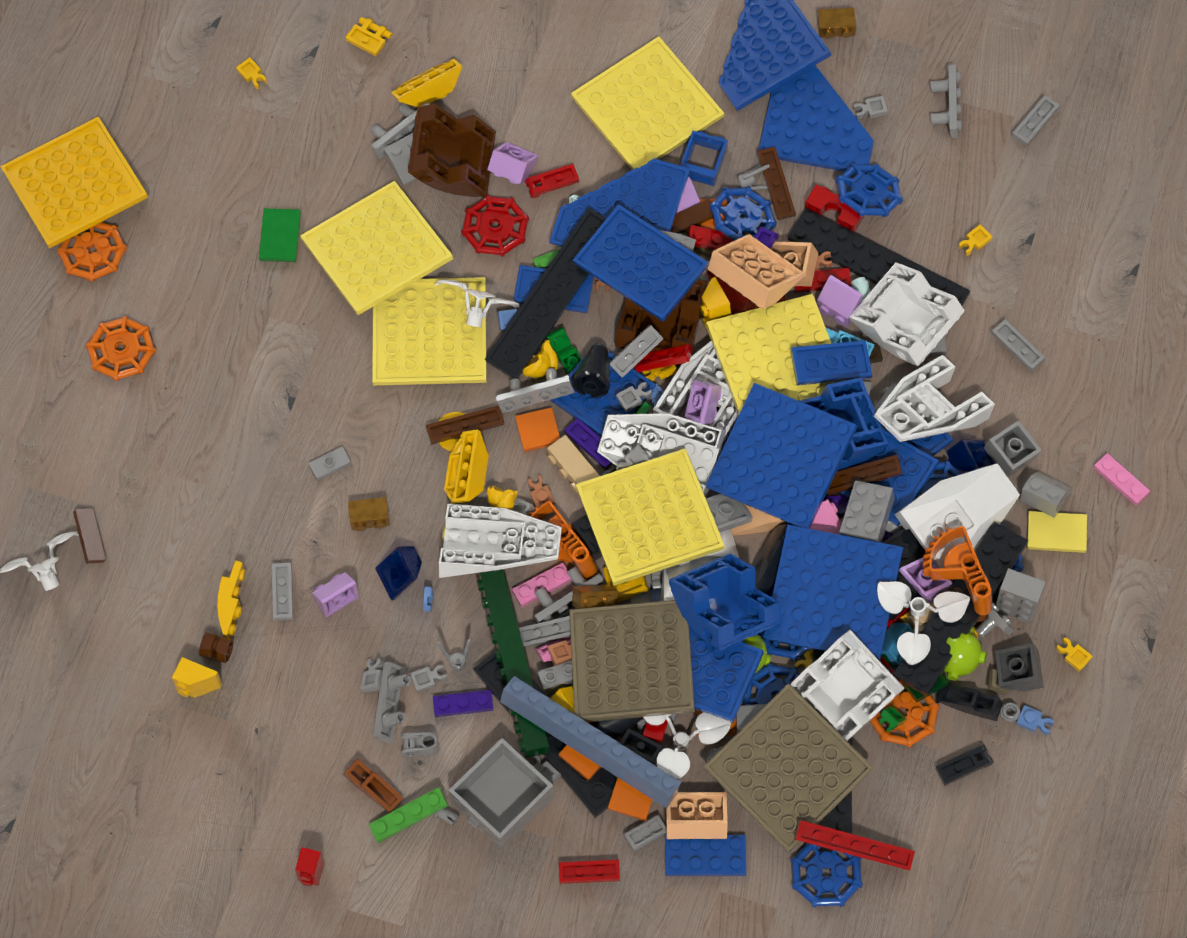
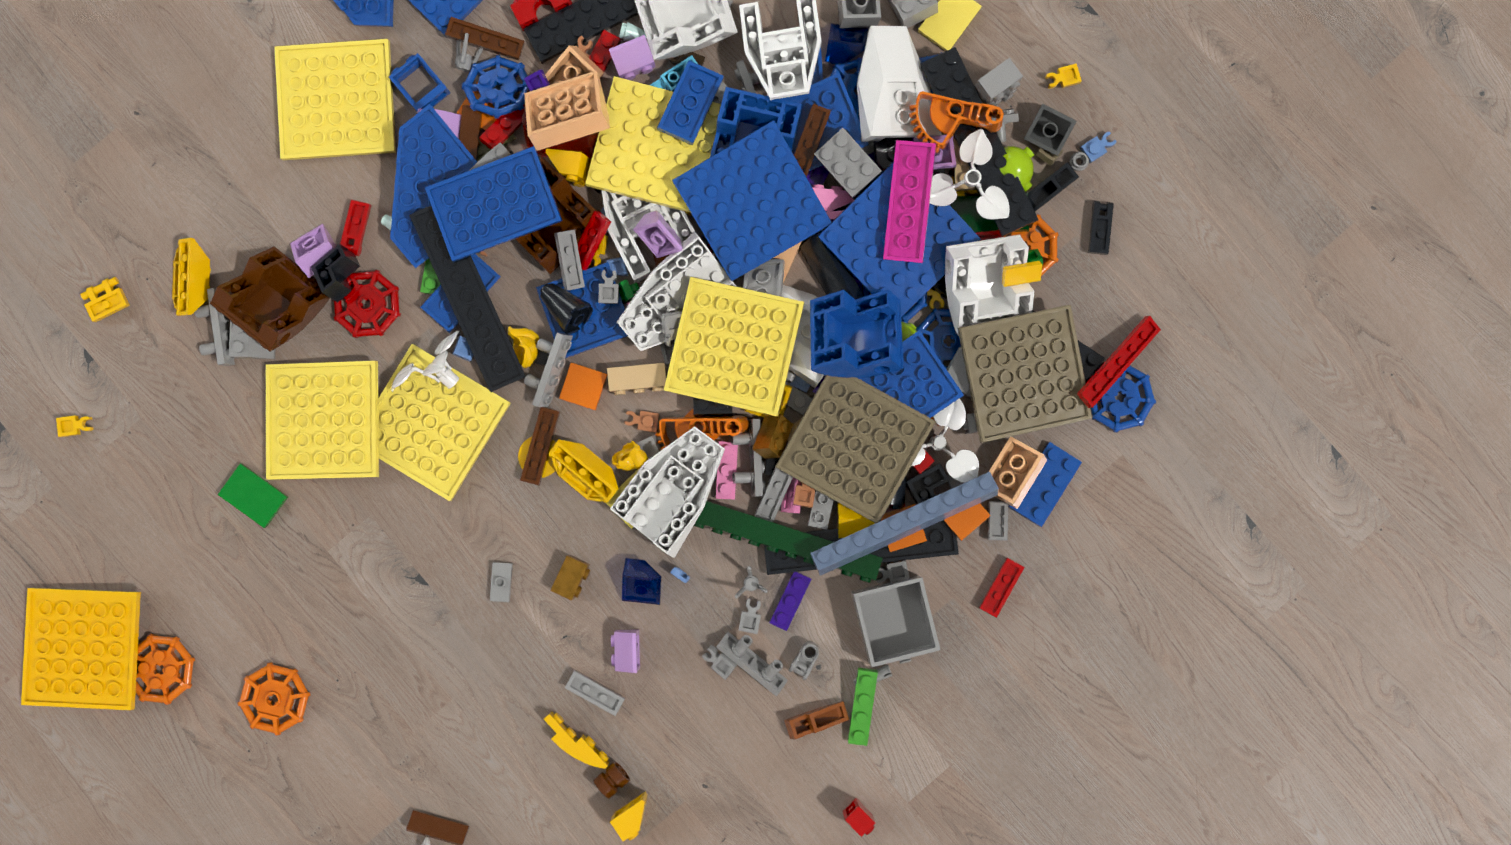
camera: 60 degrees left, 20 degrees up
(504, 183) = (333, 270): none -> black brick
(566, 353) = (524, 318): green slope -> none
(587, 440) = (620, 352): dark purple plate -> none
(865, 574) = (909, 201): none -> dark pink plate
(871, 708) = (1021, 273): none -> yellow tile
(891, 638) = (966, 208): dark azure panel -> none

